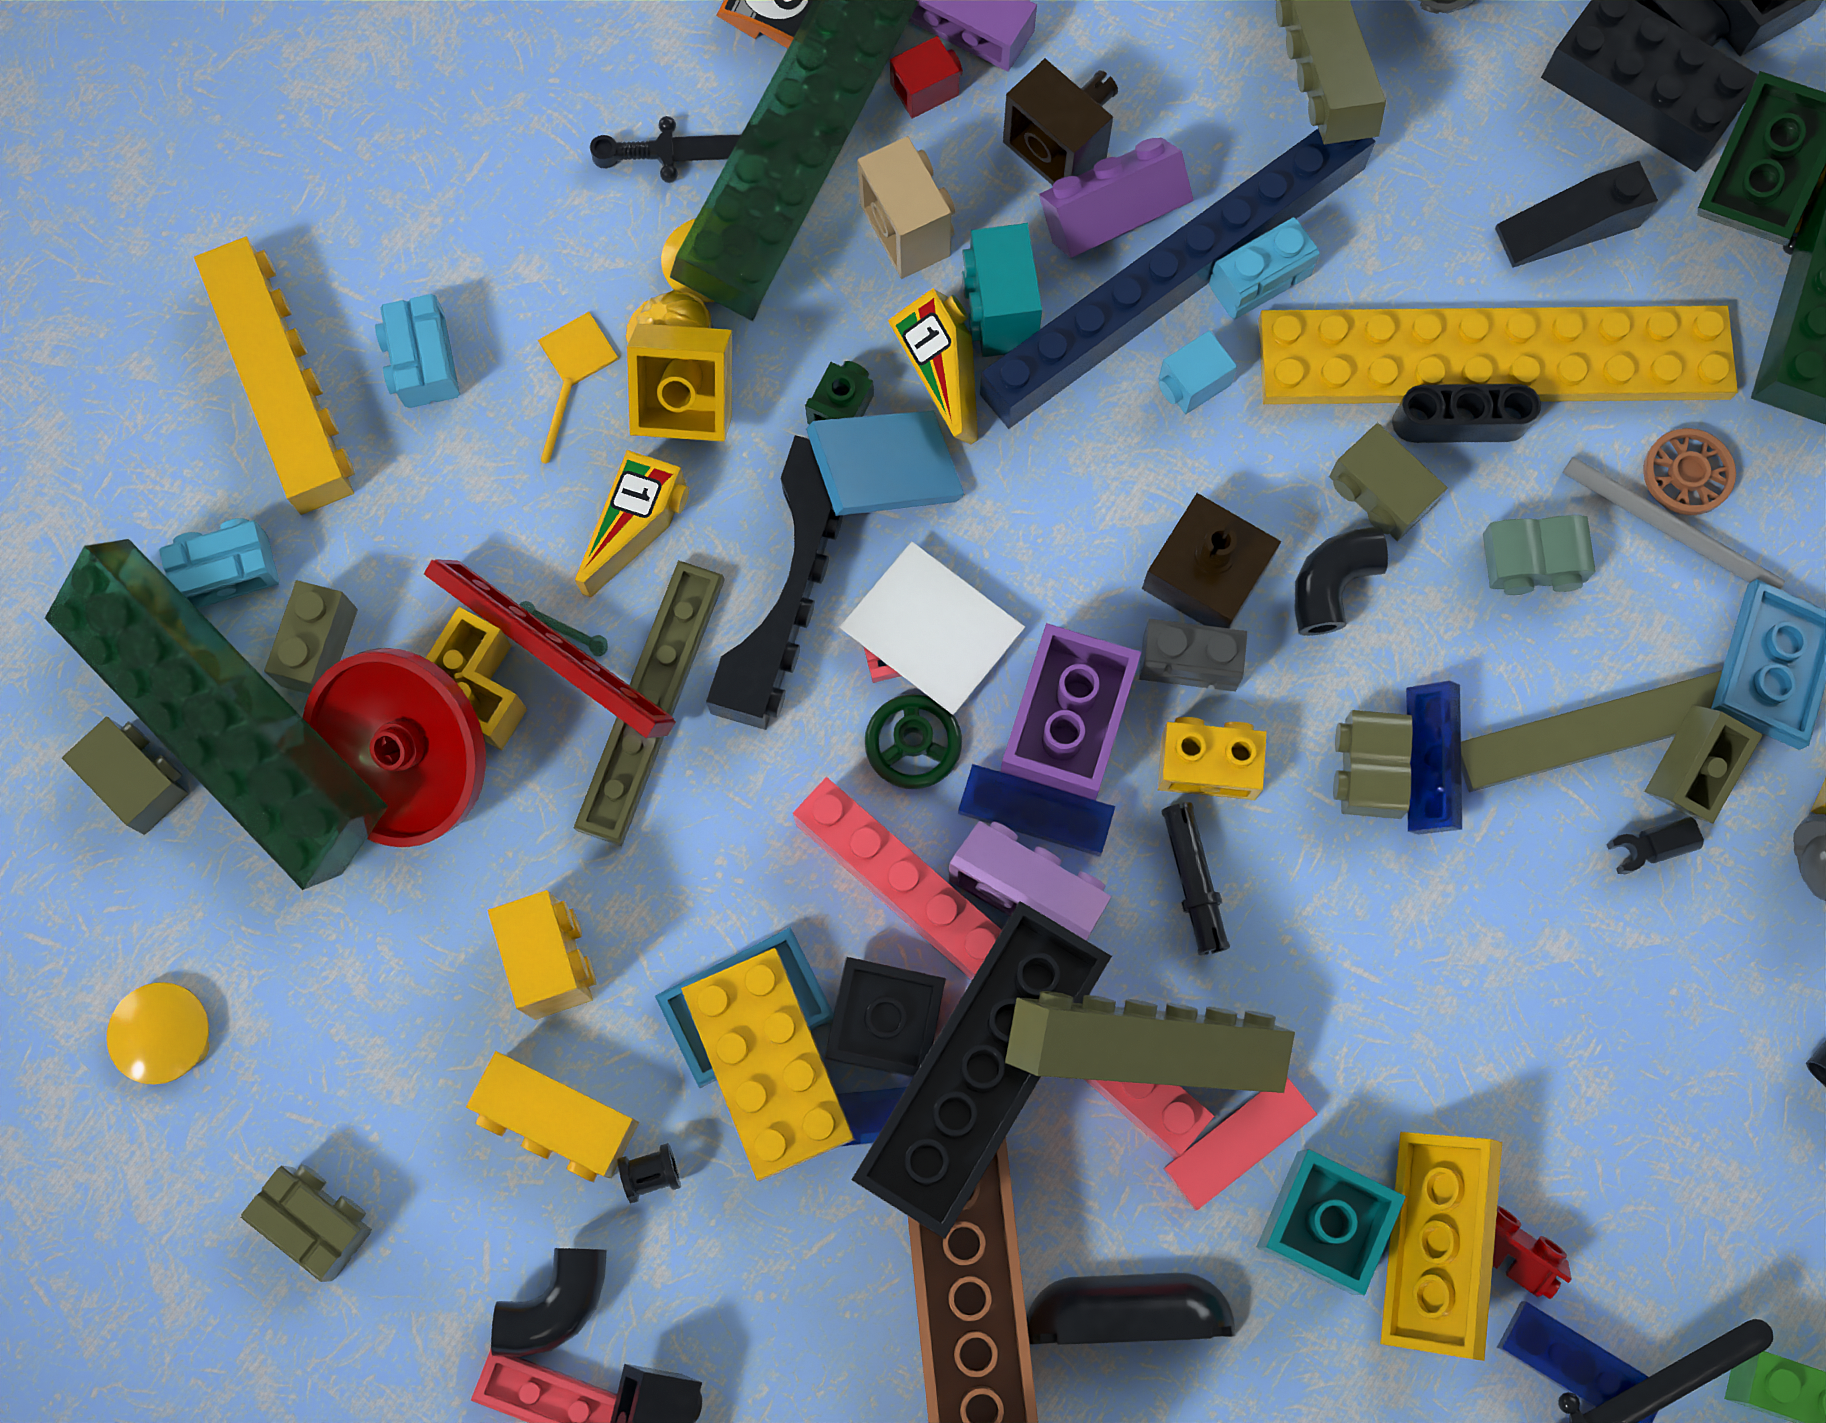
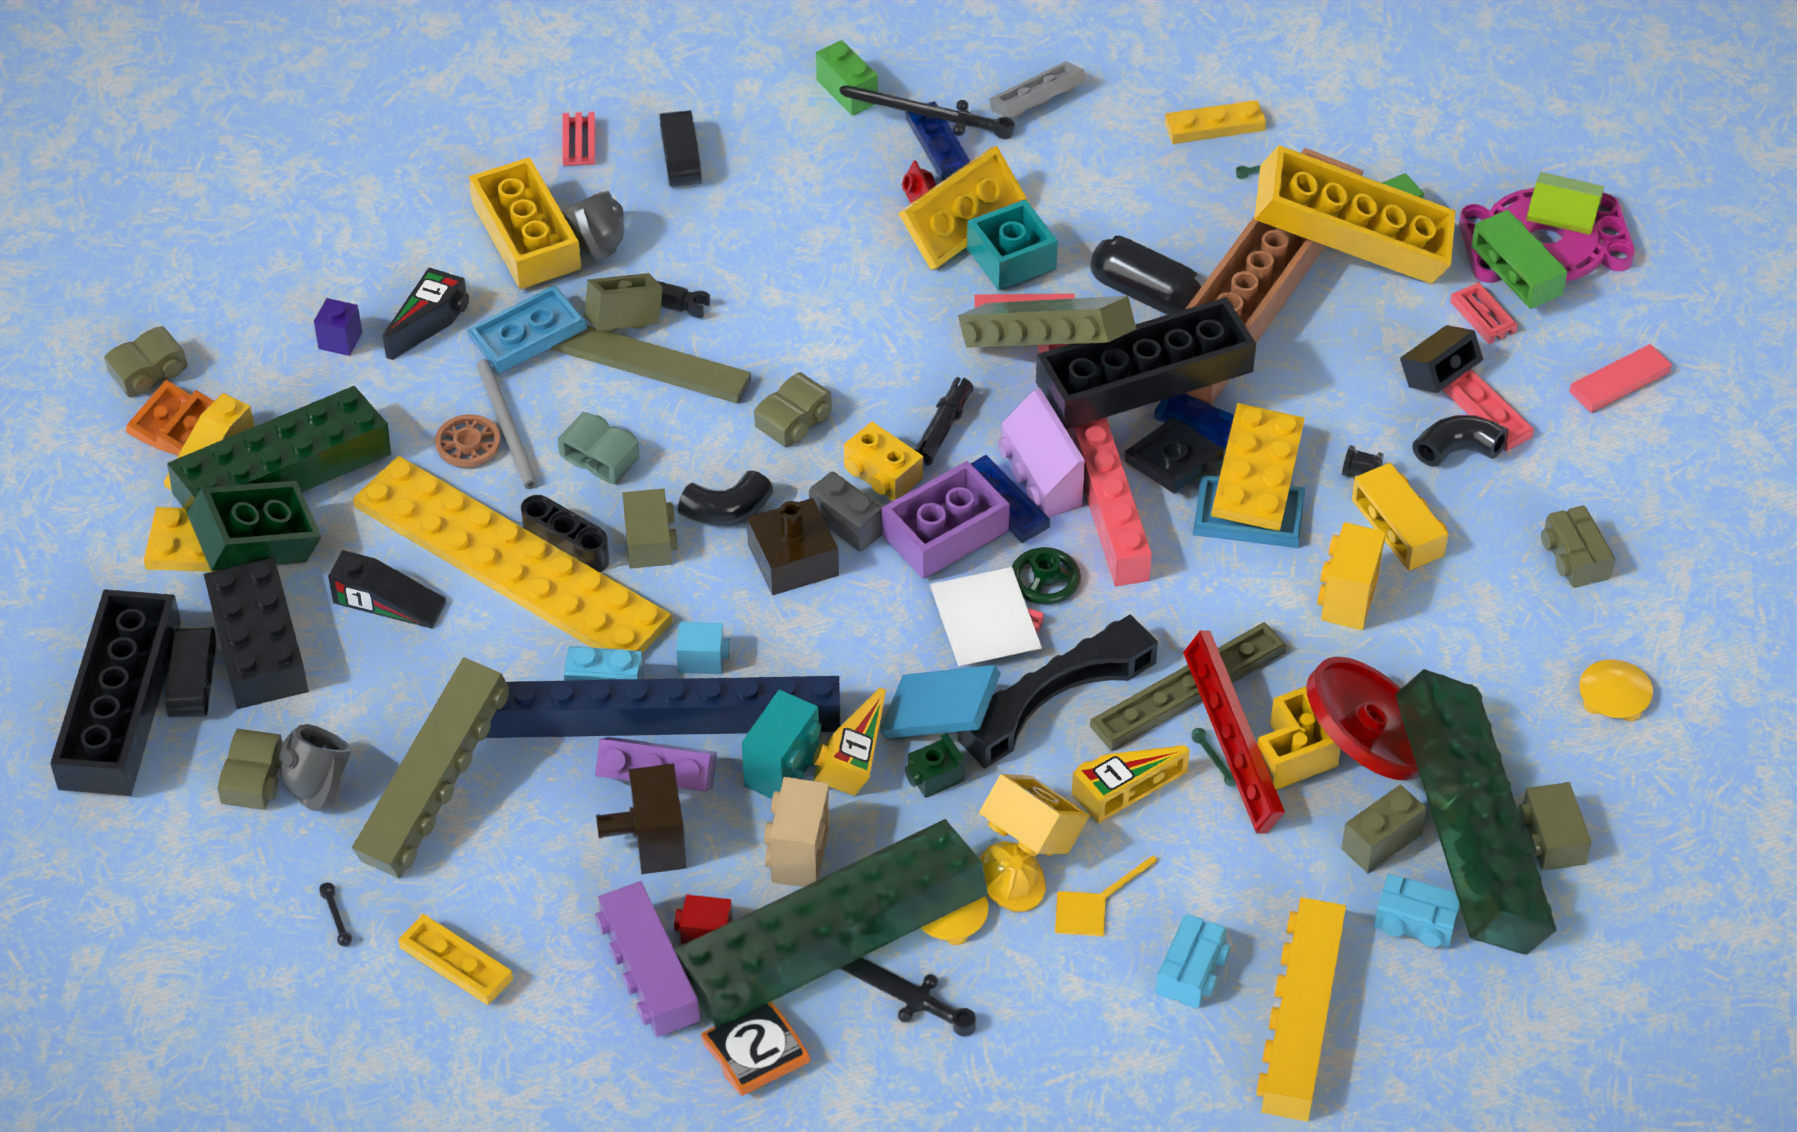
camera: 145 degrees left, 25 degrees down
(1435, 758) = (737, 410): clear blue plate -> none

